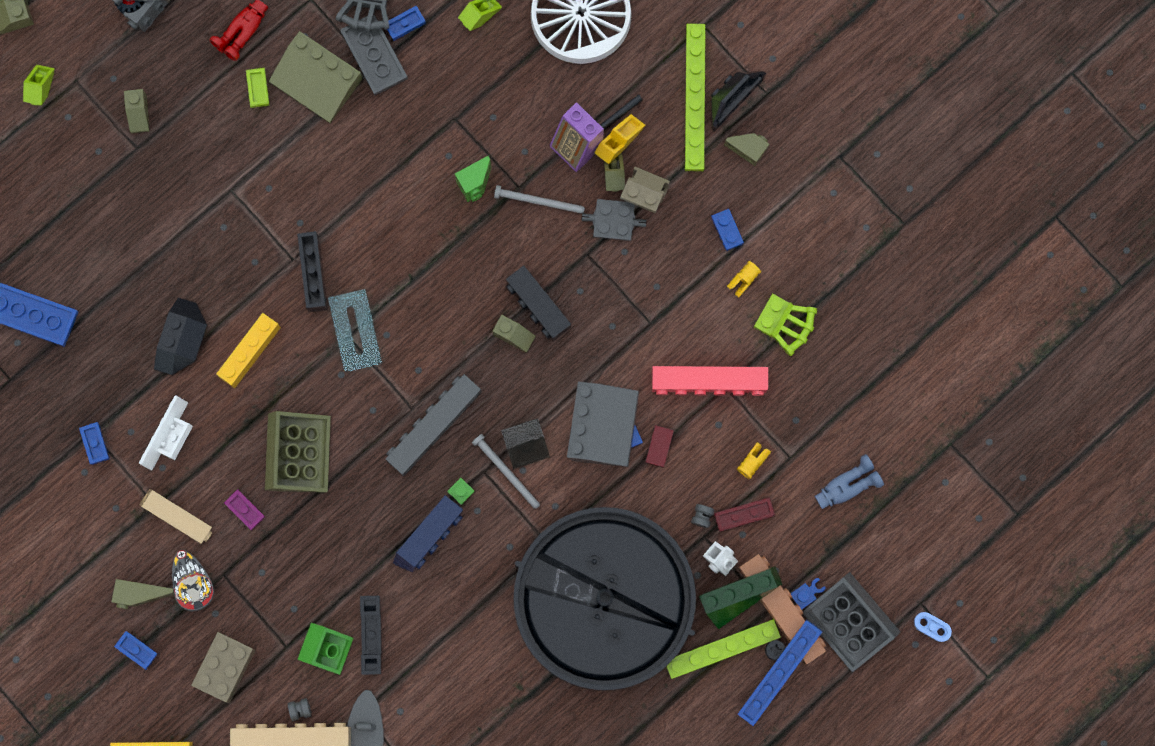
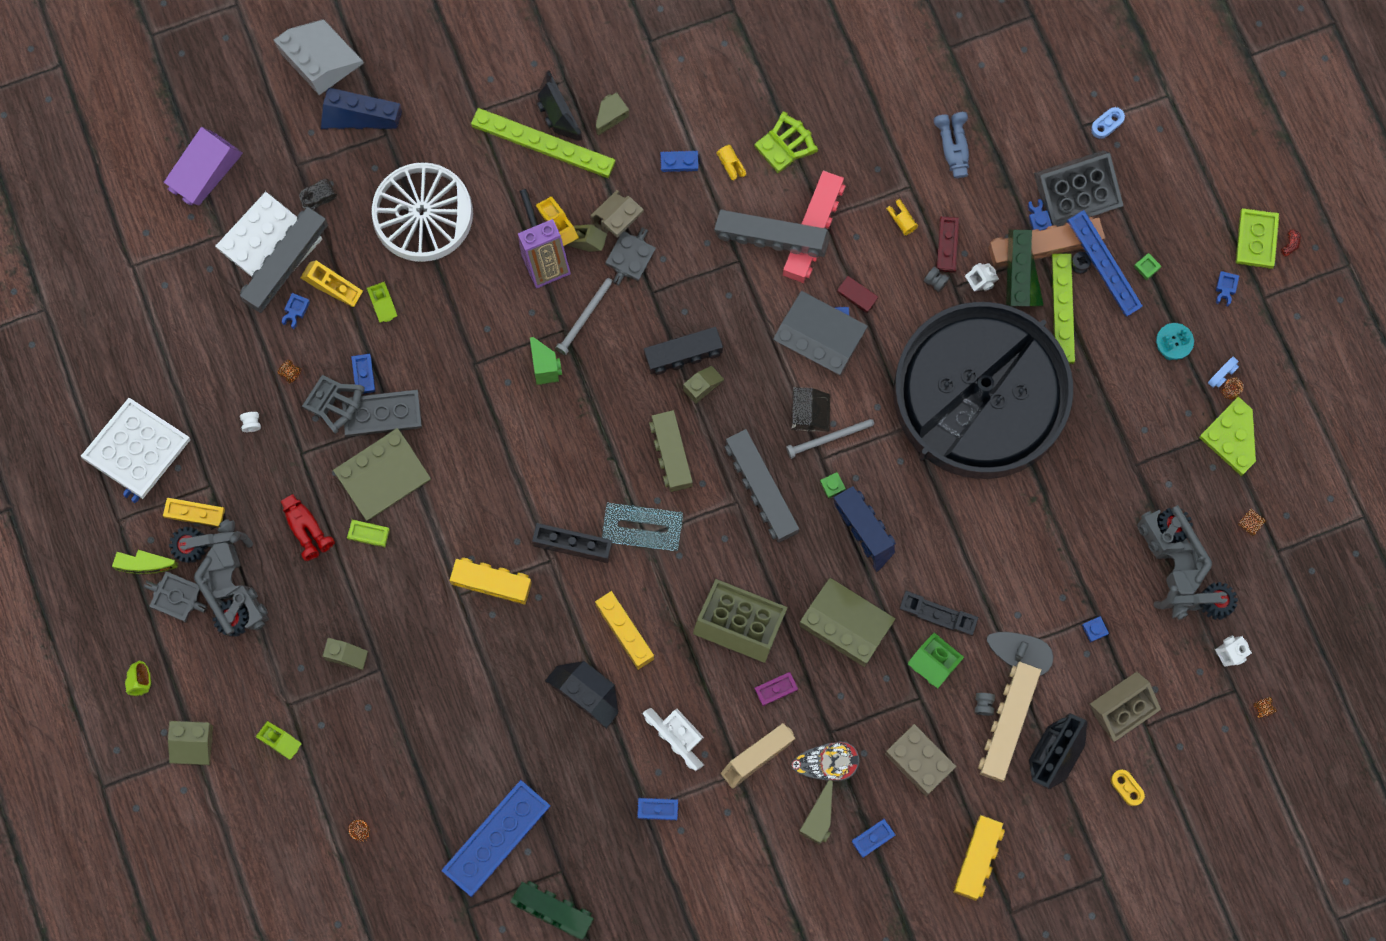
camera: 70 degrees left, 5 degrees down
(250, 212) = (490, 581): none -> yellow brick
(332, 552) = (846, 622): none -> olive slope
(436, 329) = (671, 450): none -> olive brick
(683, 342) = (772, 233): none -> dark grey brick
(797, 717) = (1147, 266): none -> bright green plate

